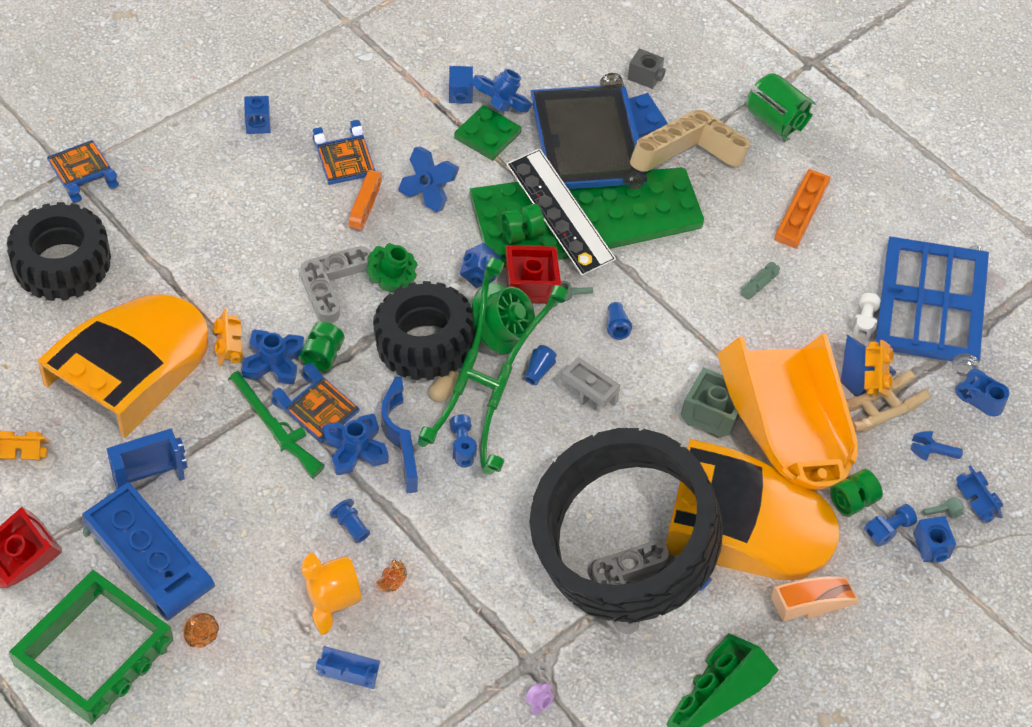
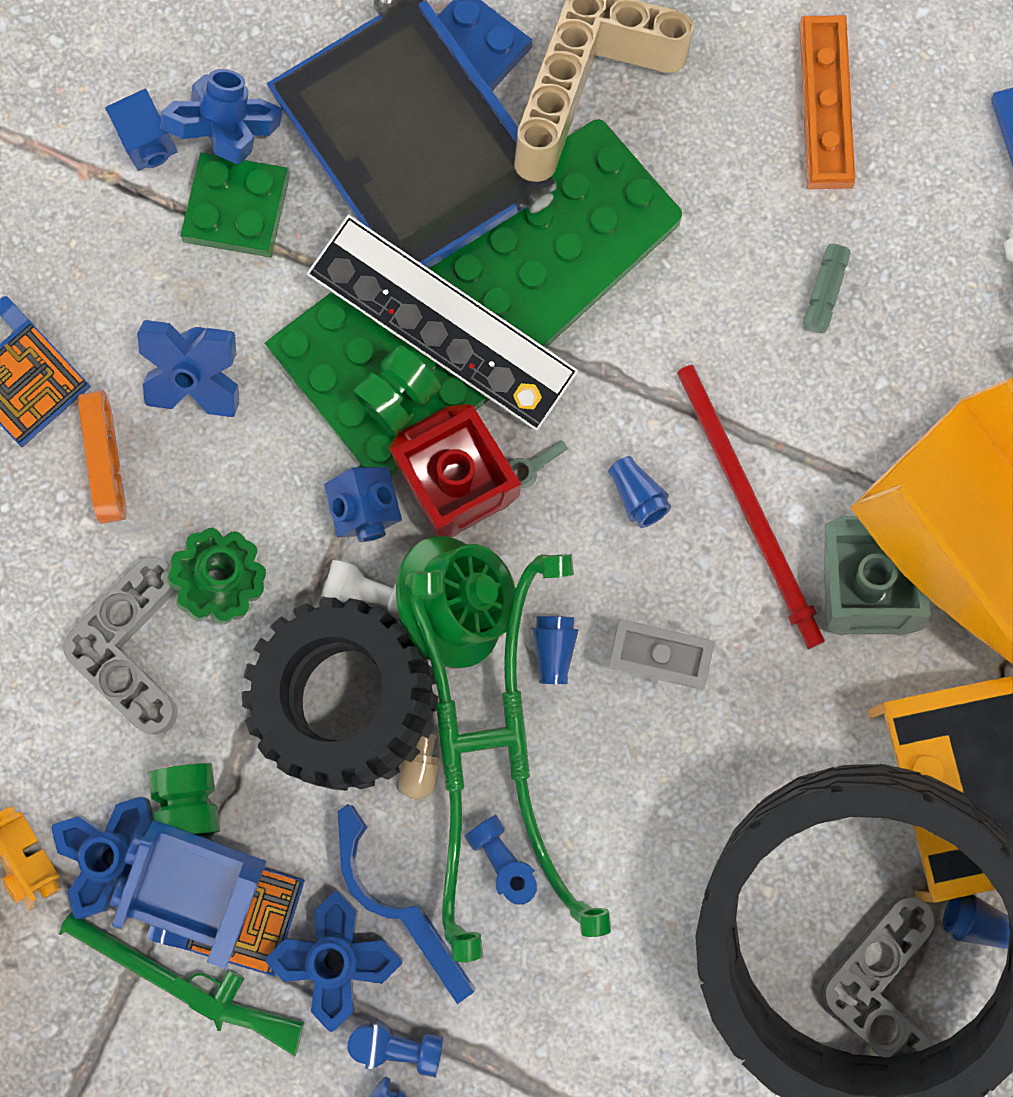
camera: 15 degrees left, 25 degrees up
(304, 374) = (188, 888): none -> panel
(354, 487) = (375, 1044): none -> blue leg
(671, 406) = (800, 612): none -> red bar

